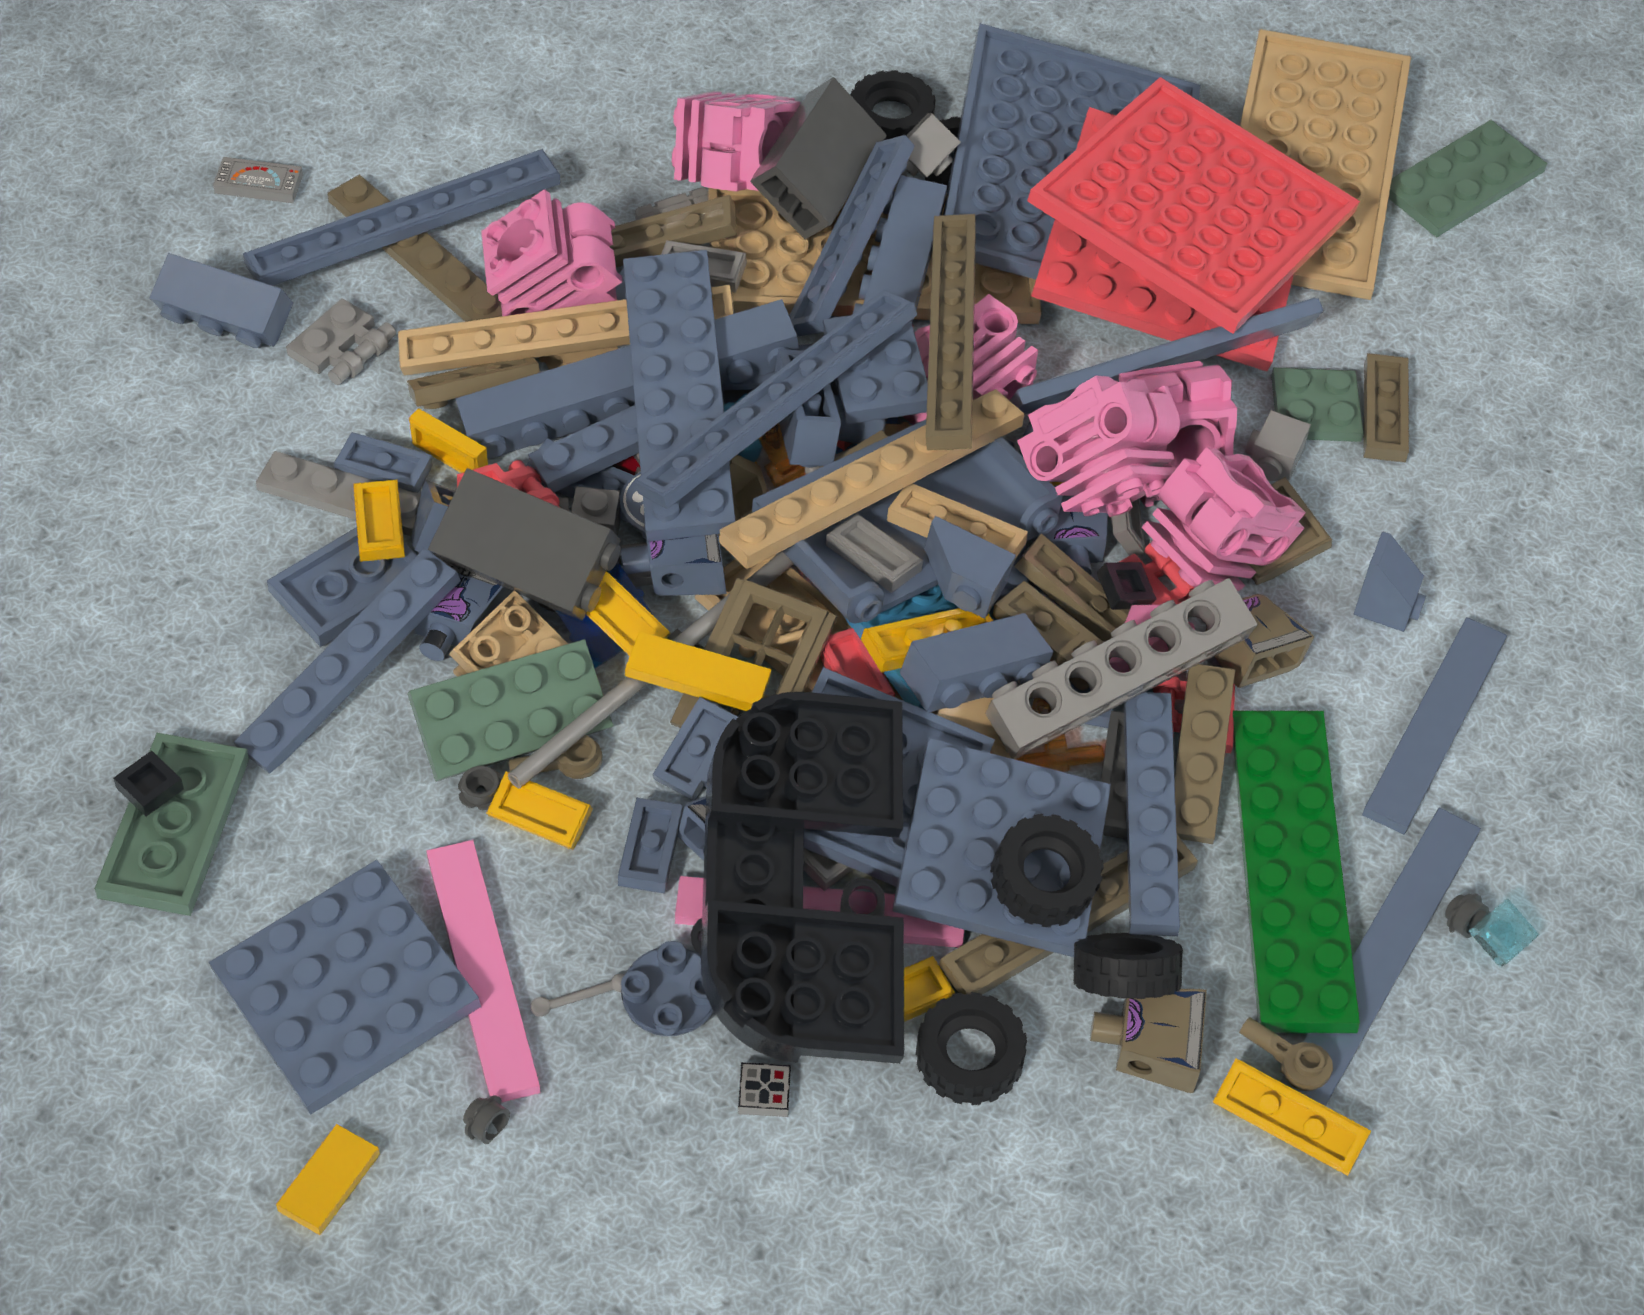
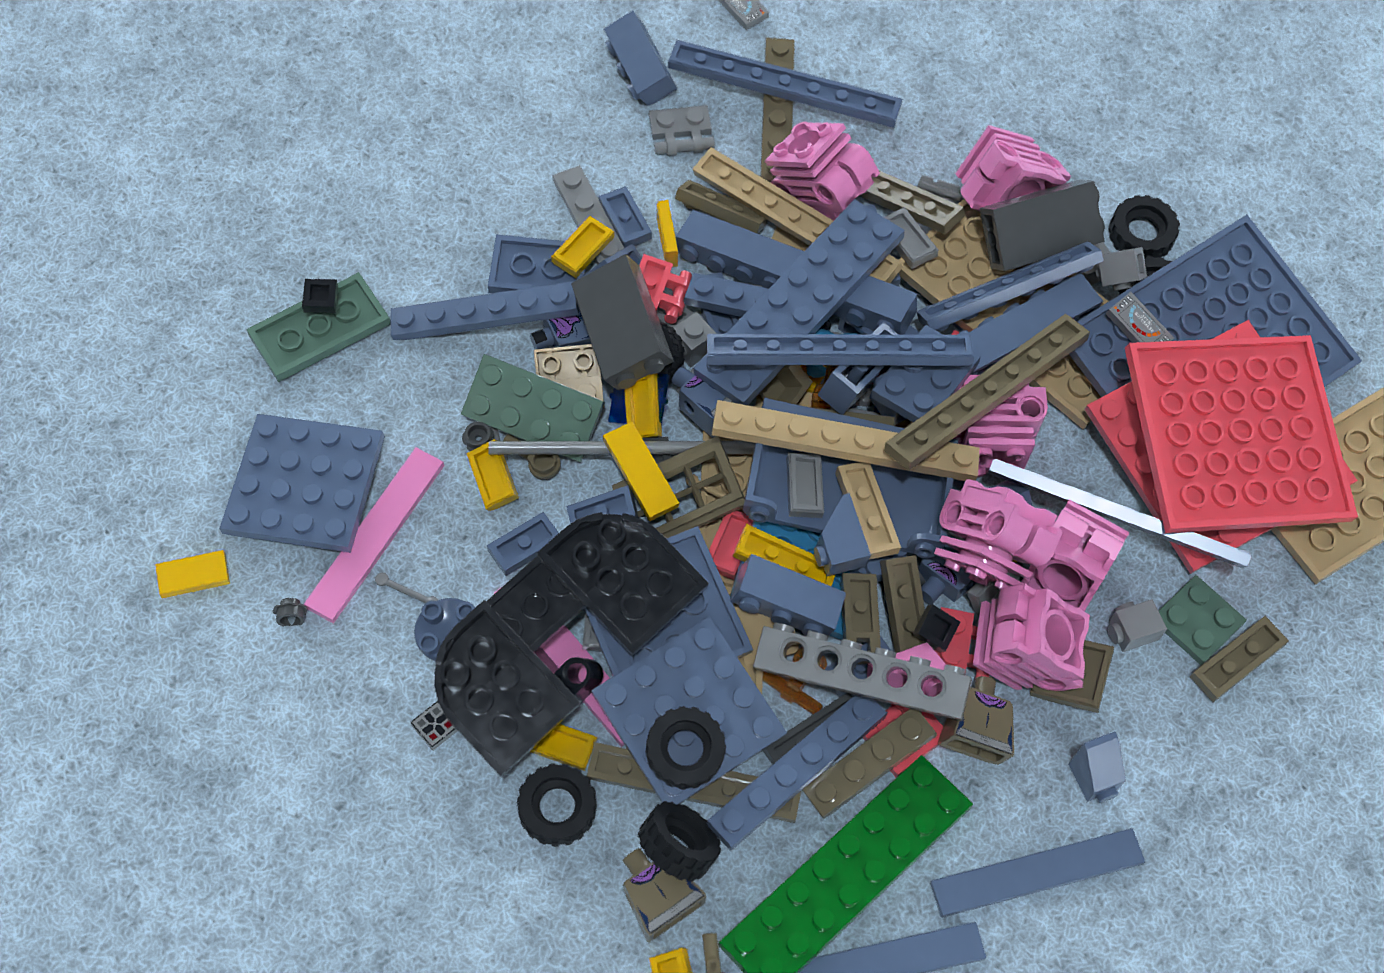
camera: 45 degrees right, 10 degrees up
(998, 182) = (1137, 321): none -> light grey tile

